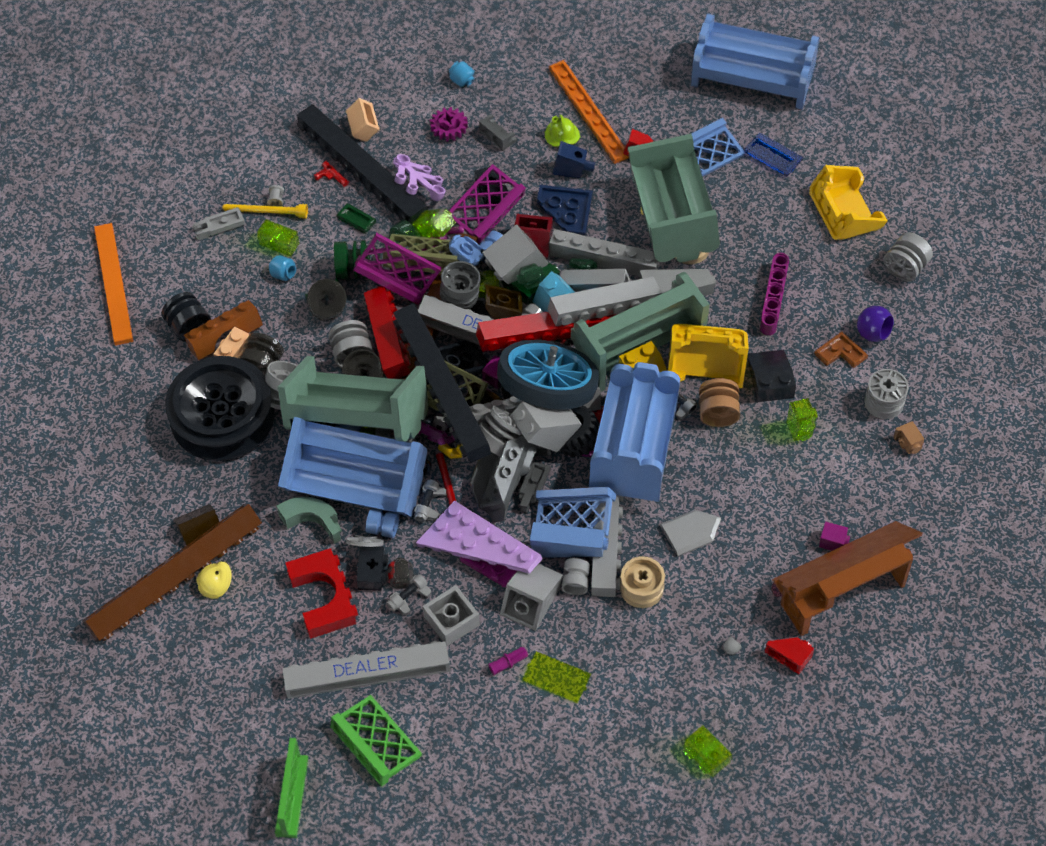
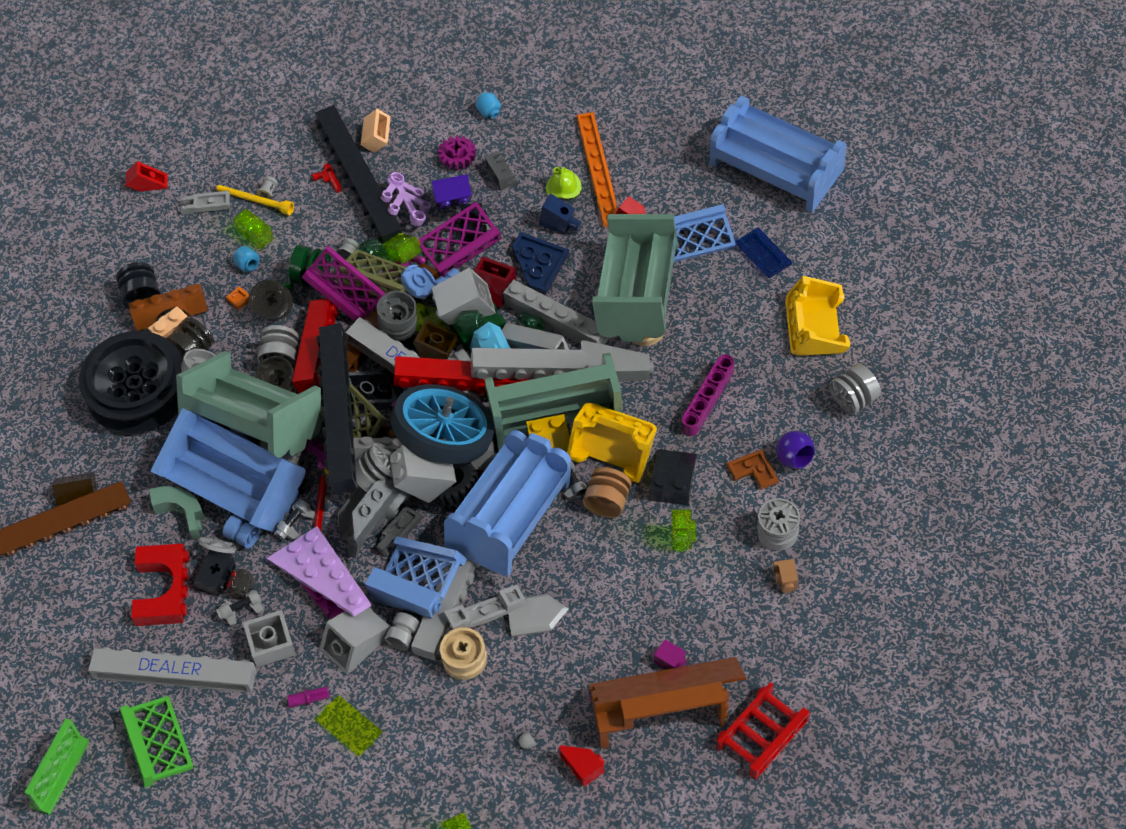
camera: 20 degrees right, 0 degrees up
(113, 284) = (89, 239): orange tile -> none
(148, 213) = (145, 178): none -> red slope
(210, 583) = (68, 546): light yellow hair -> none
(288, 306) = (238, 298): none -> orange tile
(356, 218) = (335, 226): dark green tile -> none
(382, 231) = (348, 248): none -> light grey wheel
(464, 160) = (451, 191): none -> dark purple brick
(650, 536) = (487, 610): none -> light grey slope
(961, 578) = (770, 749): none -> red fence

